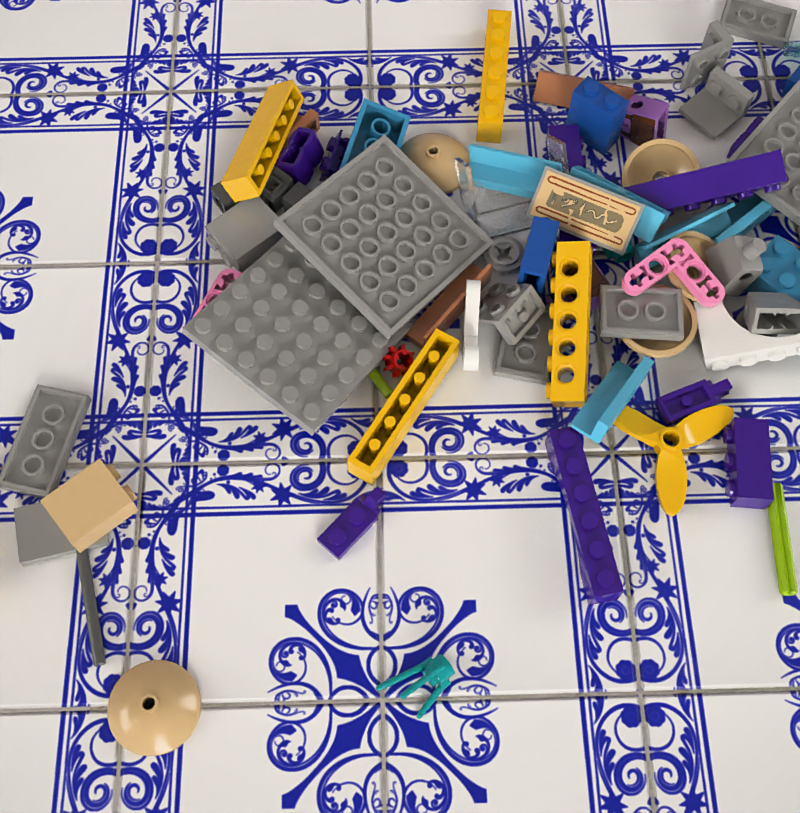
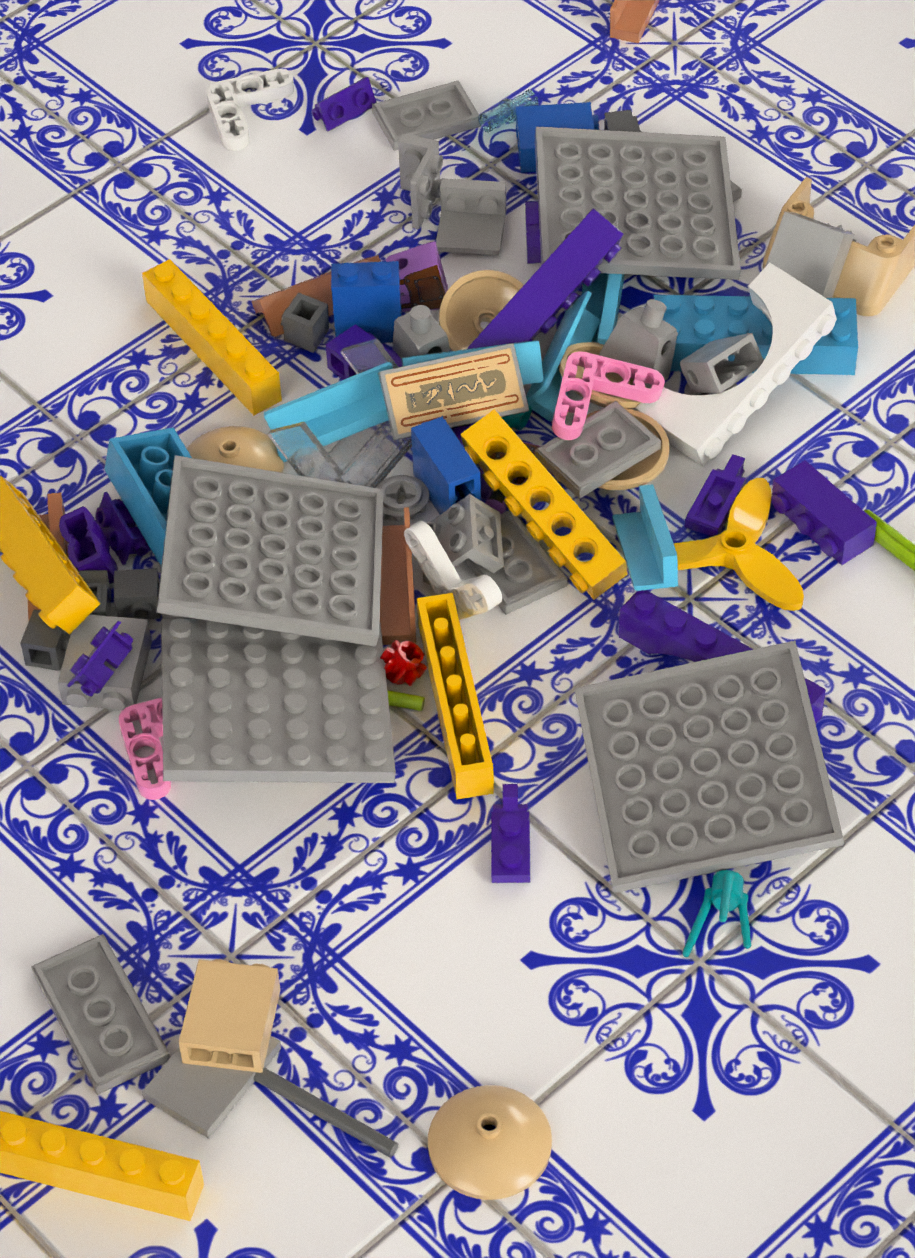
camera: 40 degrees left, 15 degrees down
(242, 226) = (109, 647): none -> dark purple hinge
(501, 582) = (707, 767): none -> light grey plate
(552, 103) = (305, 322): none -> dark grey brick
(607, 158) = (418, 334): none -> light grey torso

